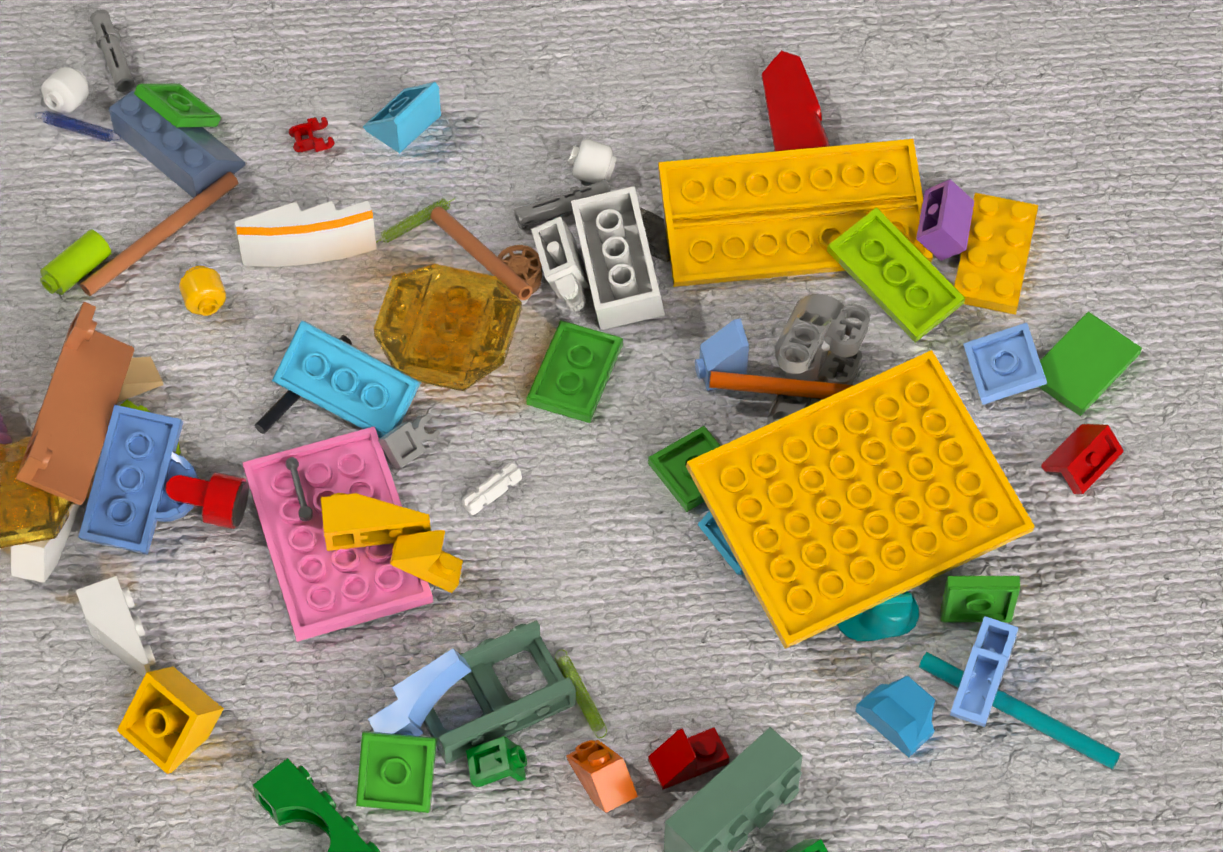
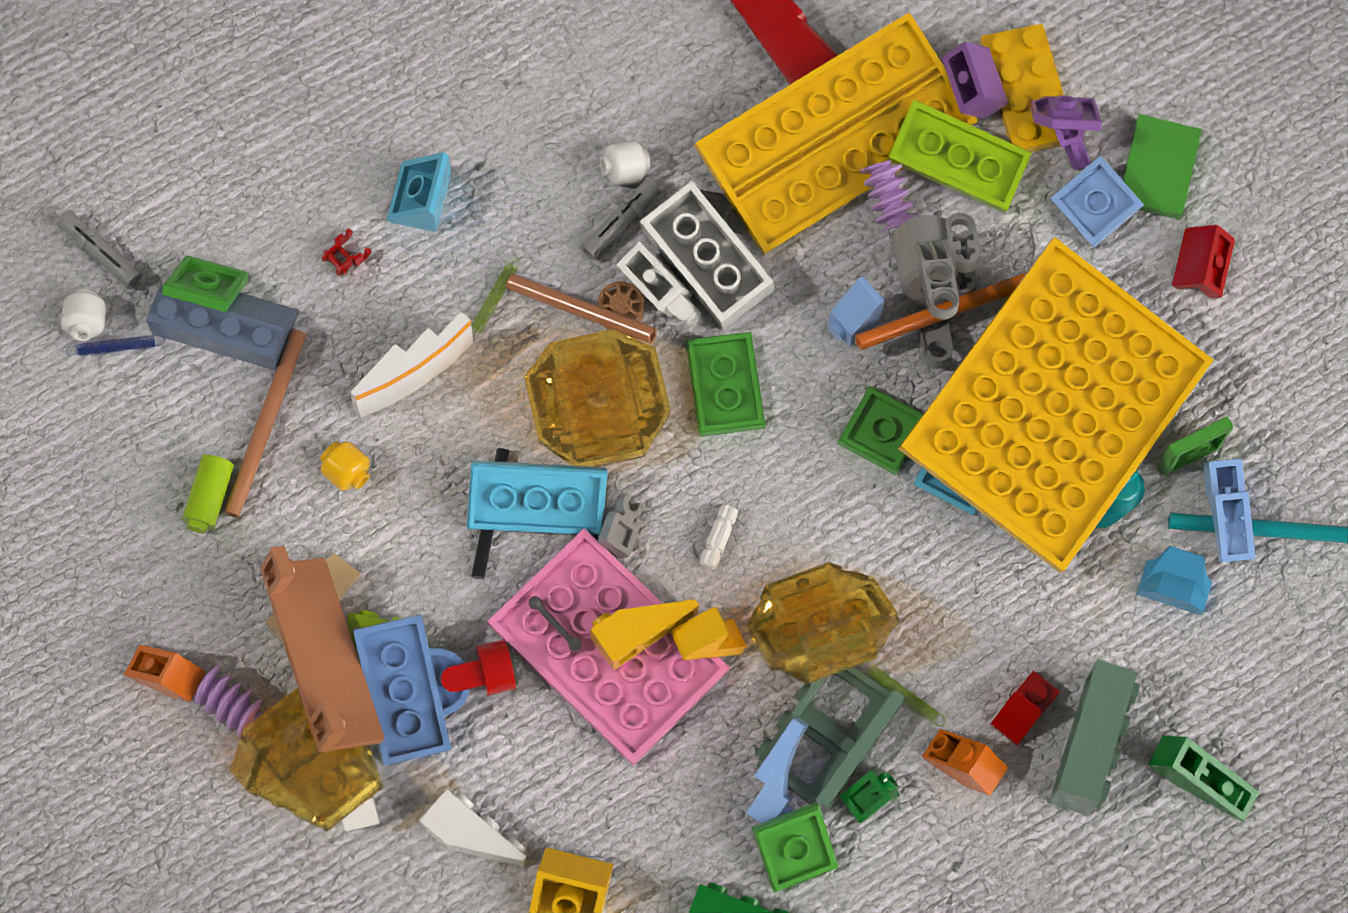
camera: 30 degrees left, 15 degrees up
(533, 590) = (821, 622): none -> clear yellow piece
(810, 270) = (888, 194): none -> lavender piece
(1010, 284) = (1069, 119): none -> medium lavender piece

